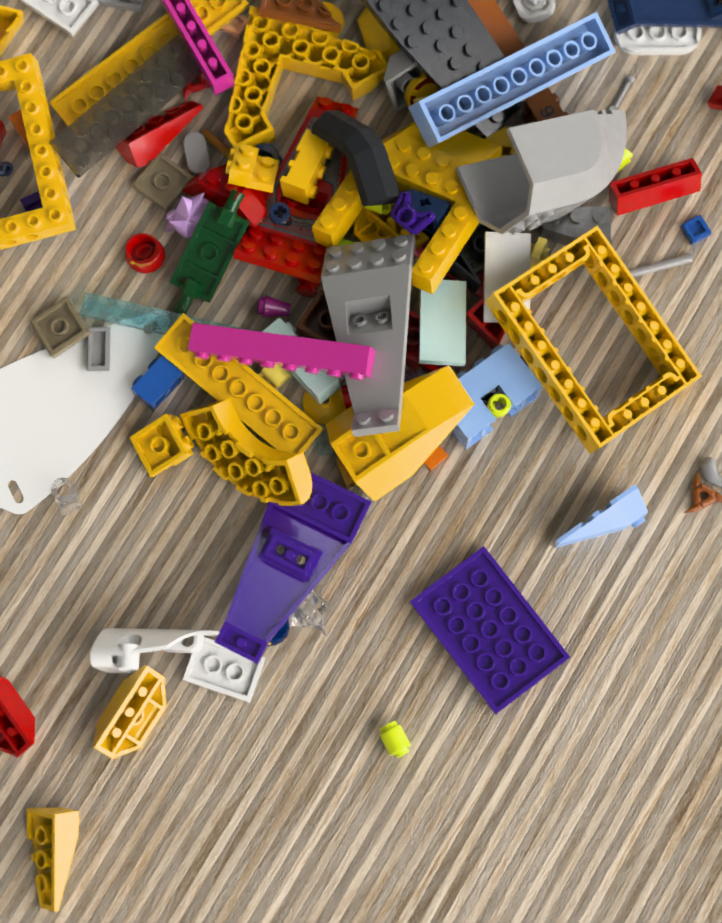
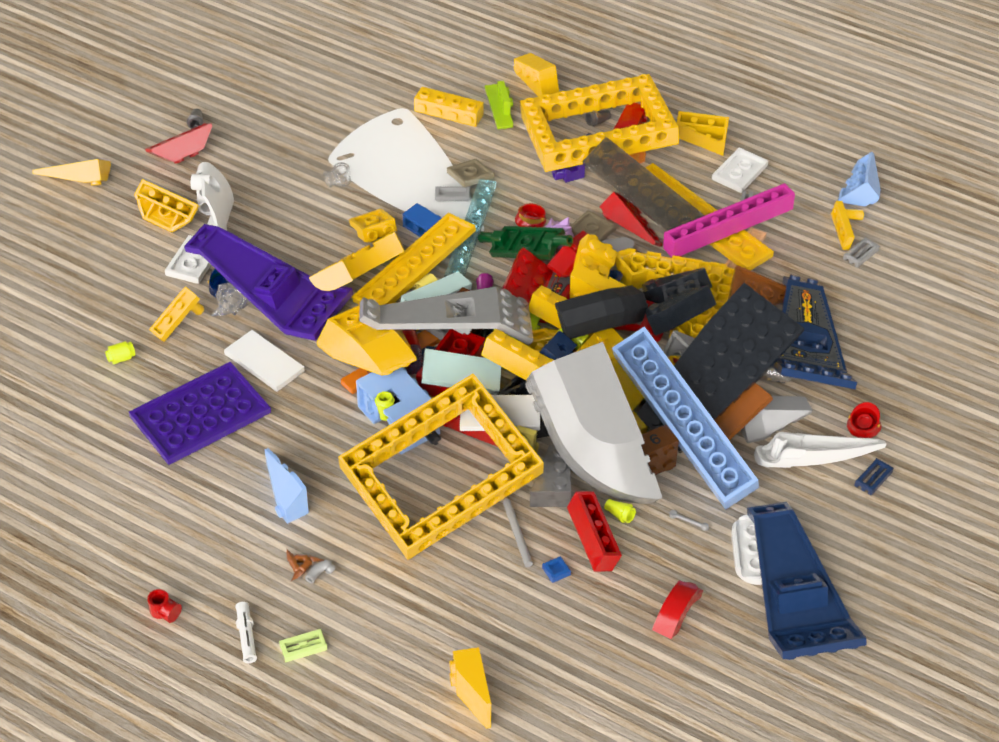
camera: 90 degrees right, 30 degrees down
(279, 221) = (564, 279): dark blue bush -> none
(282, 350) = (434, 265): dark pink brick -> none
(321, 72) = (677, 299): none -> black wedge
(335, 675) = (175, 313): none -> yellow piece
(398, 563) = (264, 360): none -> white tile
(408, 216) = (547, 331): dark purple piece -> none

